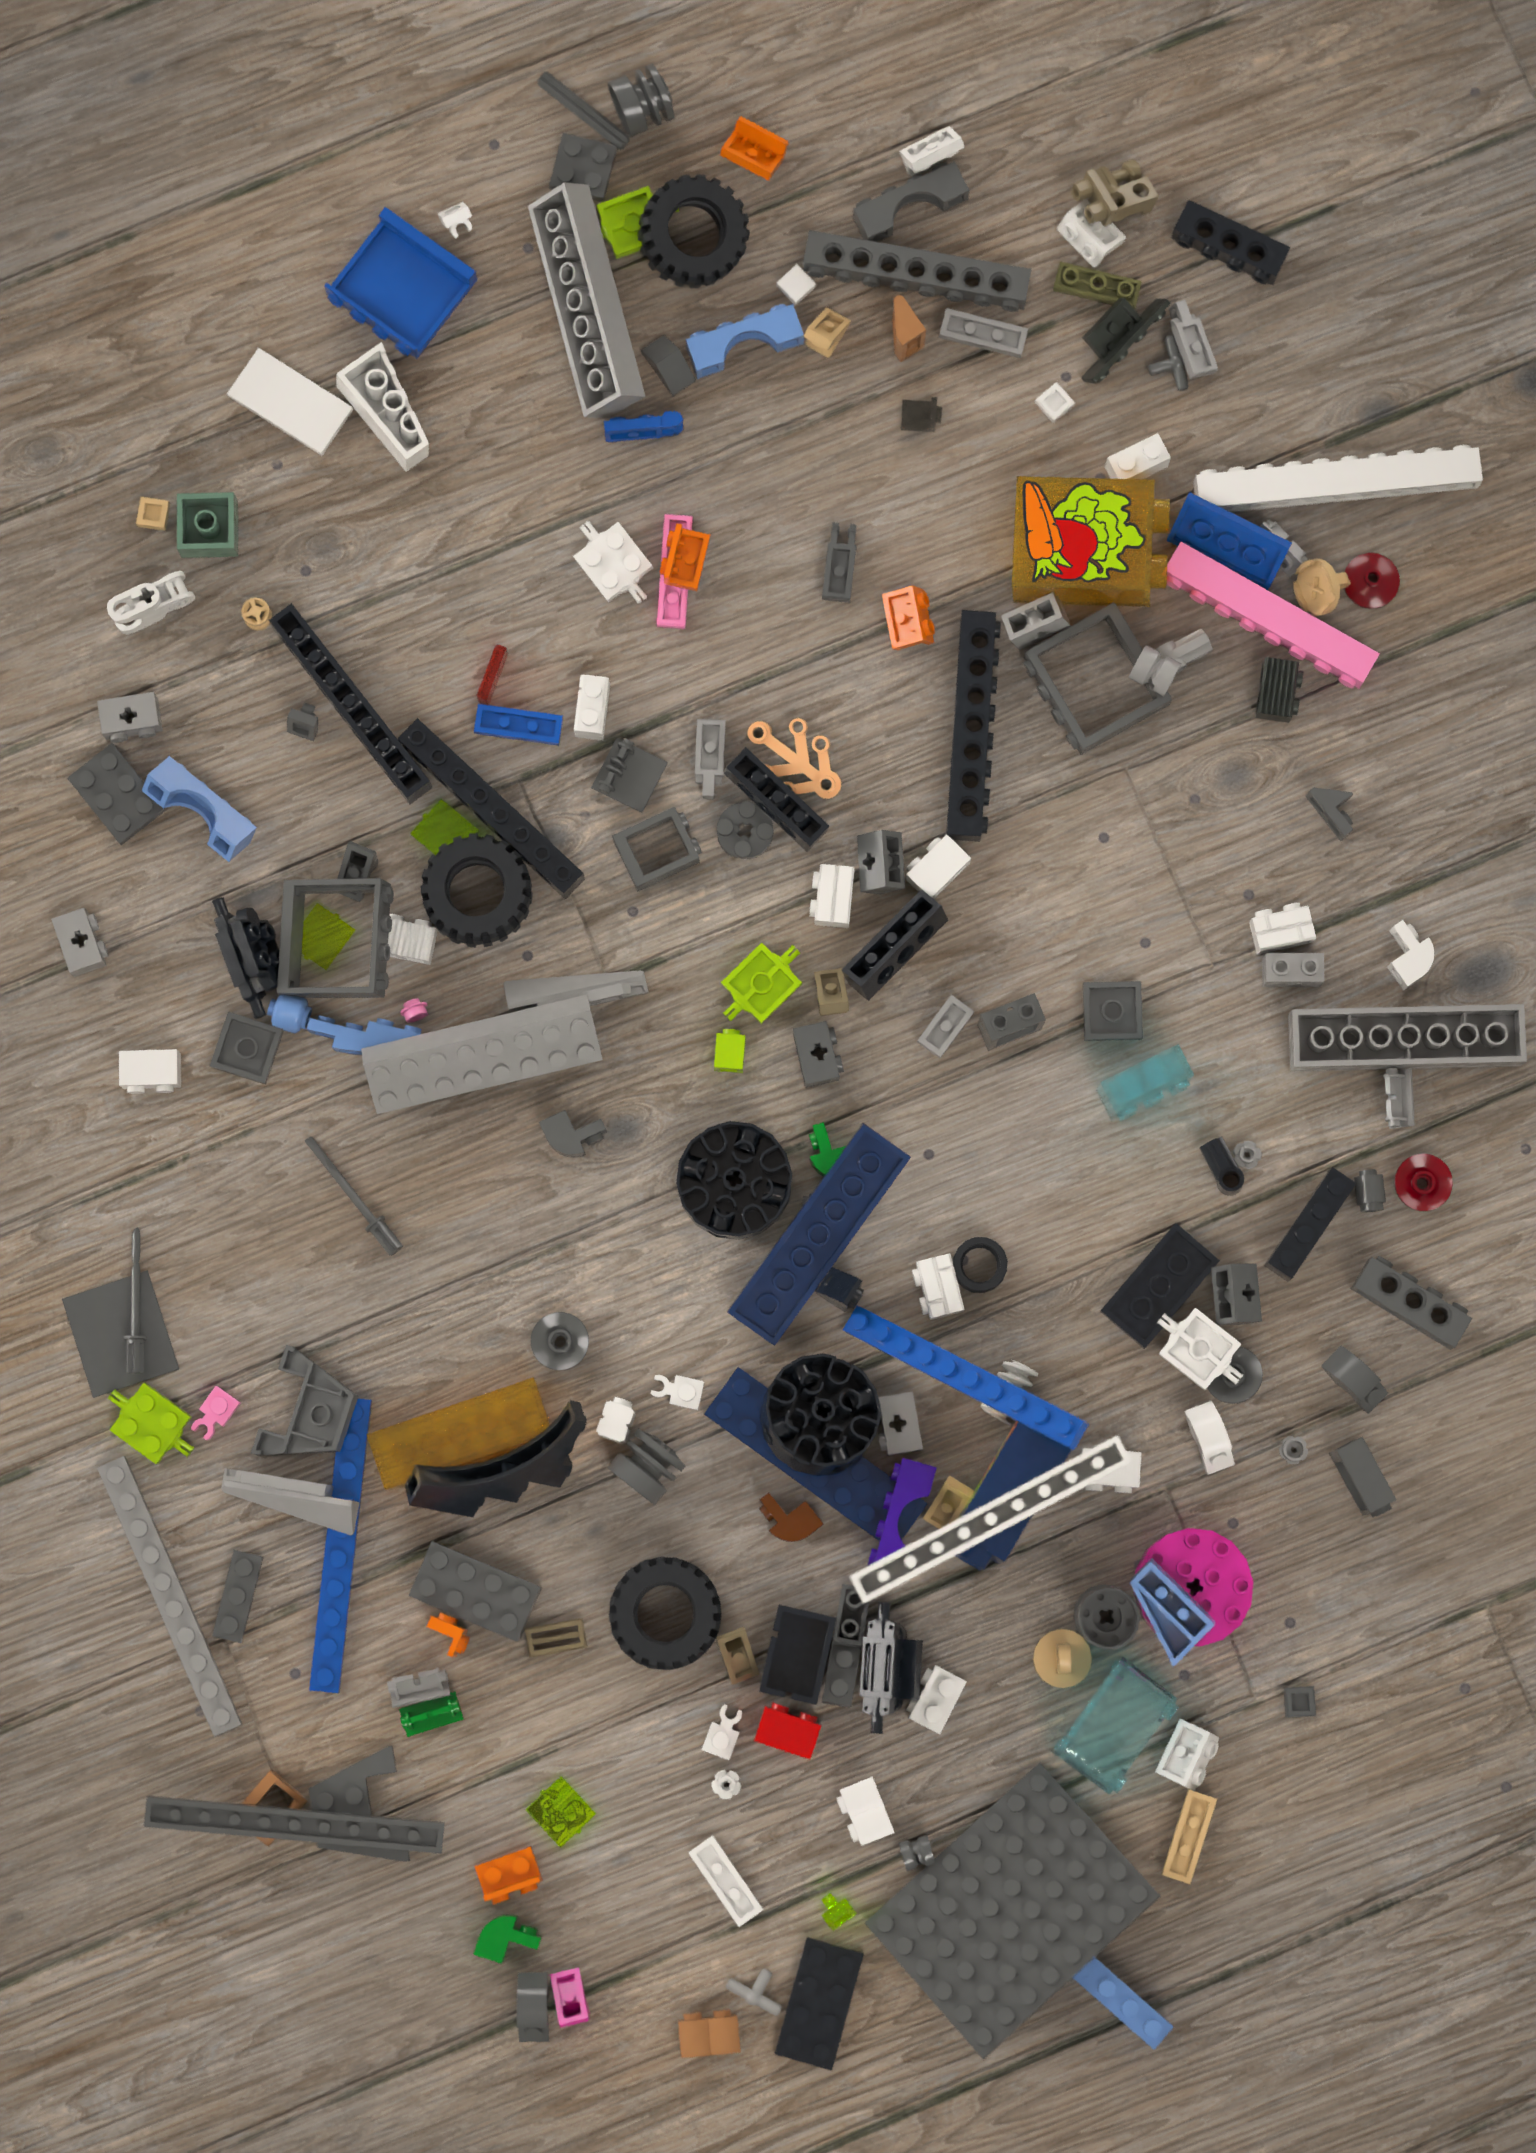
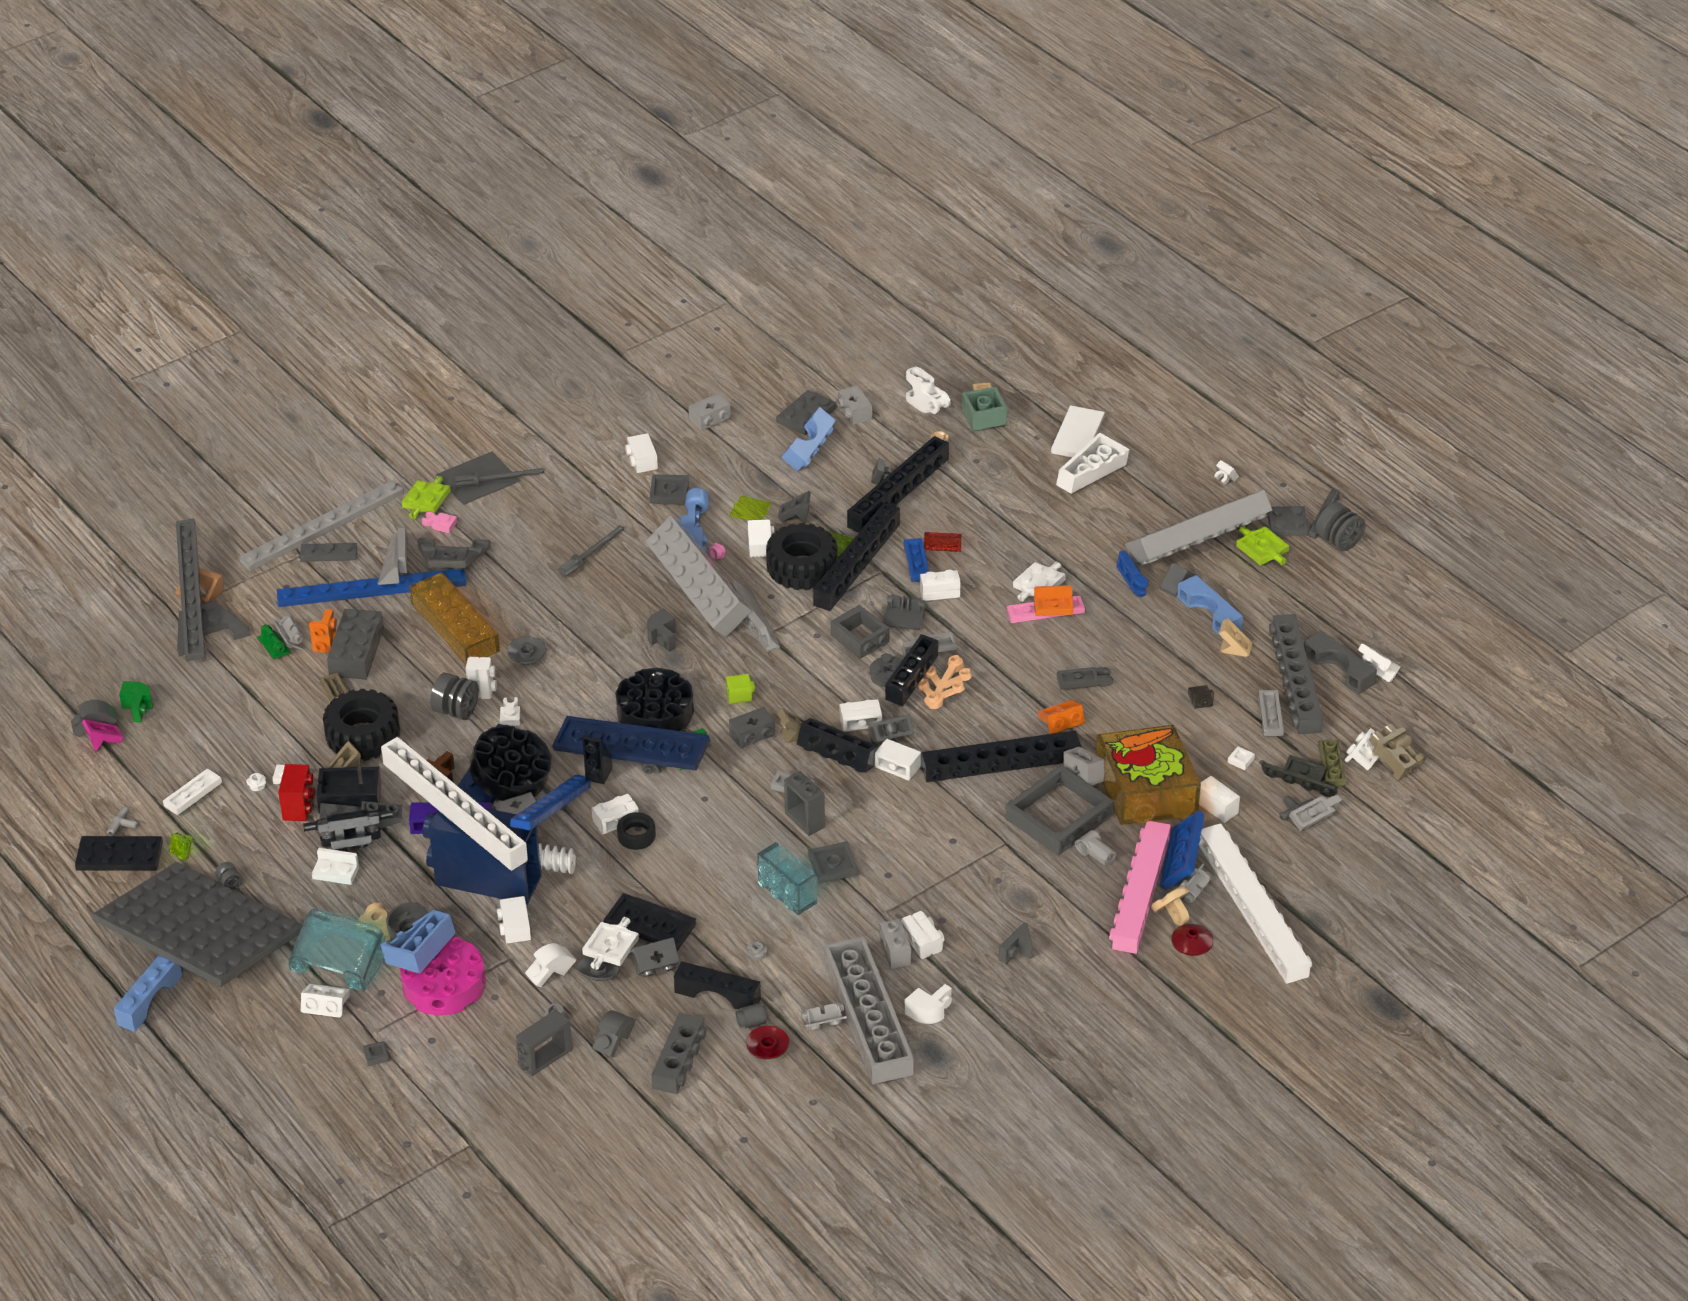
camera: 75 degrees right, 40 degrees down
(248, 953) = (727, 475): black piece -> none
(292, 935) = (747, 491): dark grey window -> none
(401, 284) = (1171, 461): blue panel -> none
(505, 1477) = (430, 638): black arch -> none
(509, 1874) = (177, 696): orange bracket -> none
(560, 1811) = (223, 713): clear neon green piece -> none
(709, 2035) = (89, 802): medium nougat brick -> none
(719, 205) = (1266, 542): black tyre -> none
(755, 148) = (1337, 587): orange bracket -> none
(761, 983) = (790, 695): lime plate -> none
(796, 284) = (1259, 625): white tile -> none
(866, 1812) = (252, 846): white brick -> none
(907, 330) = (1245, 668): medium nougat tile -> none
(1154, 670) = (1072, 819): light grey wheel -> none
(1189, 1836) = (267, 1010): tan plate -> none
(1221, 1164) = (739, 938): black piece -> none
(1224, 229) = (1393, 817): black brick -> none
(1277, 690) = (1090, 900): pearl dark grey brick -> none

